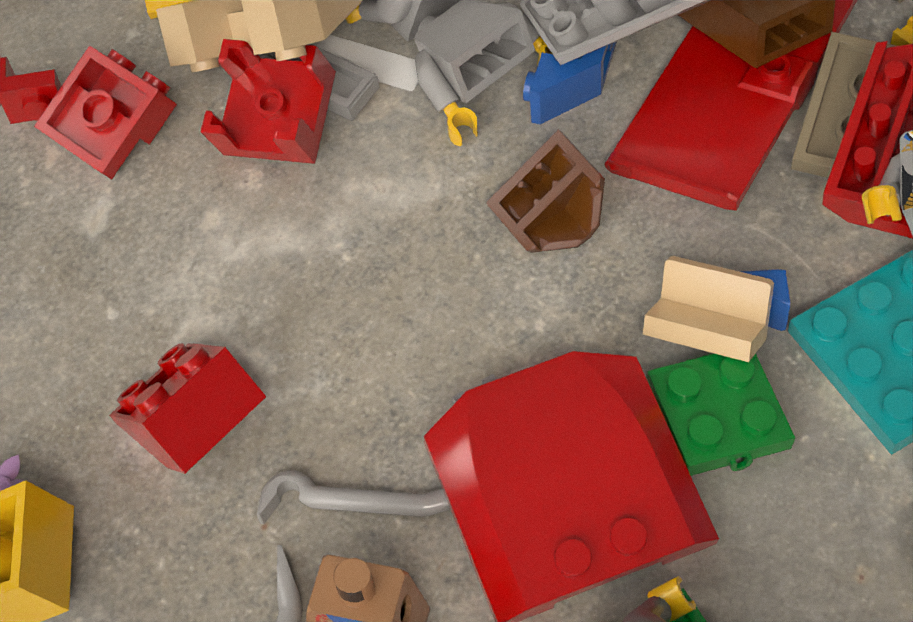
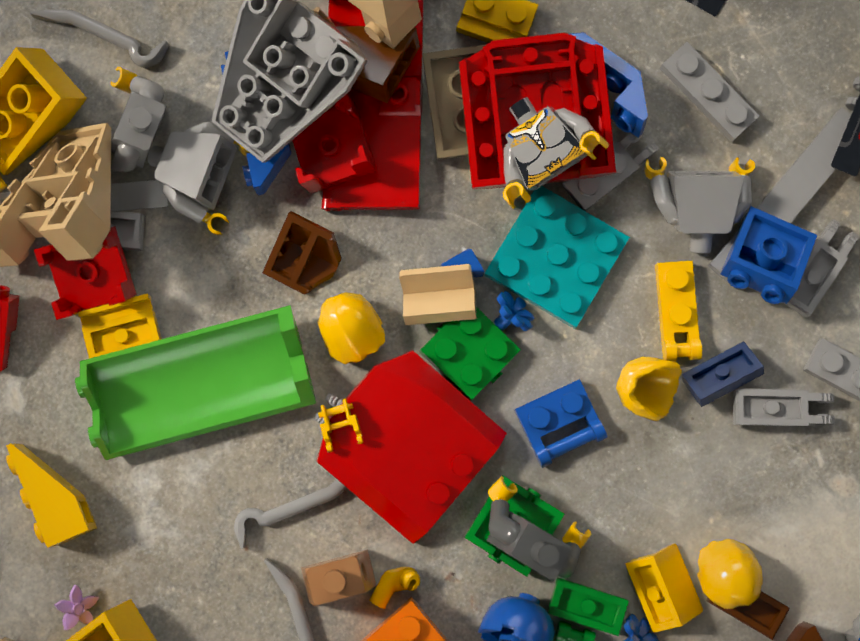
camera: 40 degrees left, 25 degrees up
(58, 354) = (56, 504): none -> yellow slope
(187, 404) = (158, 503): red slope -> none
(271, 188) = (119, 326): none -> yellow plate
(327, 285) = (195, 383): none -> bright green cylinder
(462, 390) = (327, 428): none -> yellow piece
(565, 304) = (350, 327): none -> yellow hair
(655, 93) = (333, 148): none -> red panel
(805, 385) = (513, 313): none -> blue plant
(809, 548) = (554, 412): none -> blue plate

